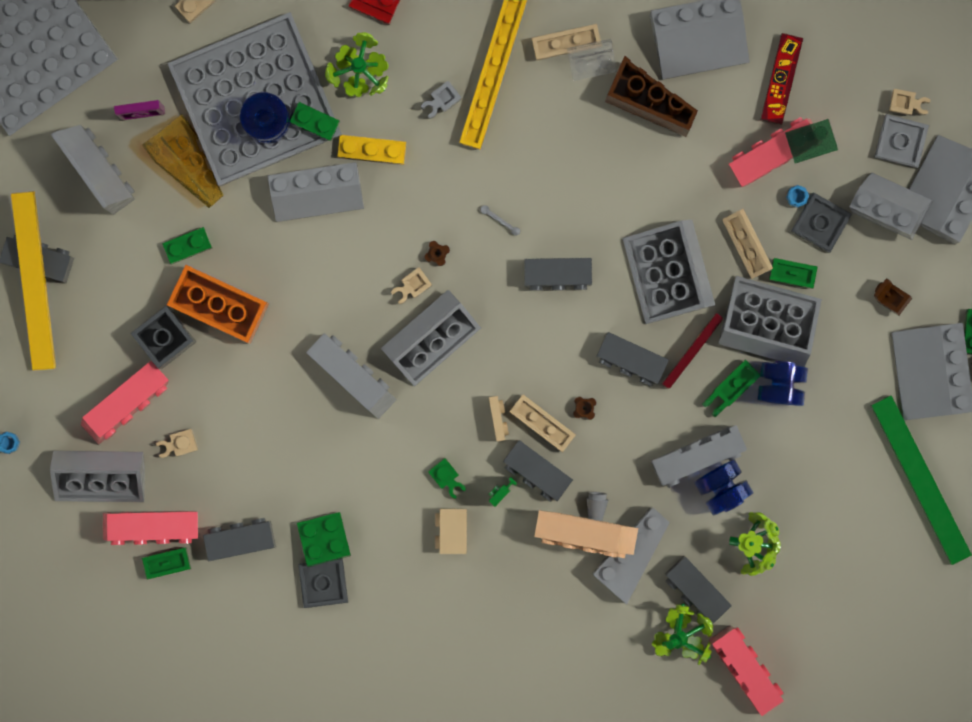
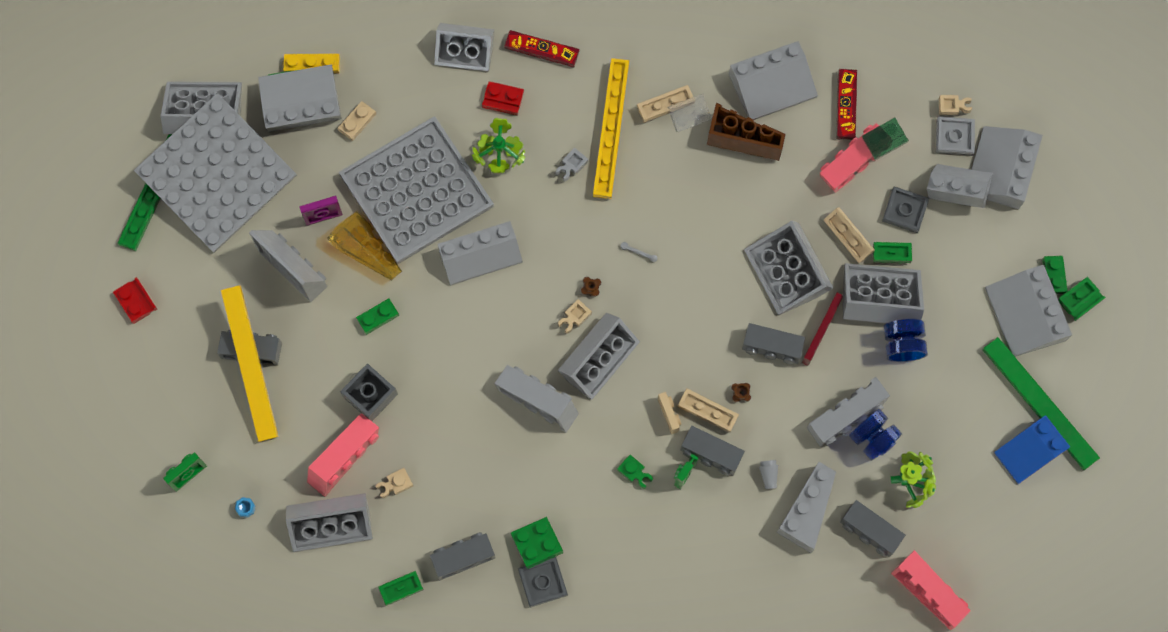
camera: 10 degrees left, 15 degrees down
(150, 526) = (381, 556): coral wedge -> none
(217, 304) = (411, 357): orange brick -> none
(265, 118) = (428, 197): clear blue wheel -> none
(314, 121) = (469, 196): green plate -> none
(372, 149) = (521, 213): yellow plate -> none
(452, 531) = (648, 514): tan brick -> none
(558, 273) = (696, 284): dark grey brick -> none
(586, 534) = (766, 491): light nougat brick -> none
(691, 645) = (861, 560): lime plant -> none
(733, 386) = (863, 352): green hinge -> none
(797, 196) = (881, 191): dark azure tile -> none
(892, 297) = (978, 257): reddish brown bracket -> none
(897, 532) = (1032, 449): none -> blue slope

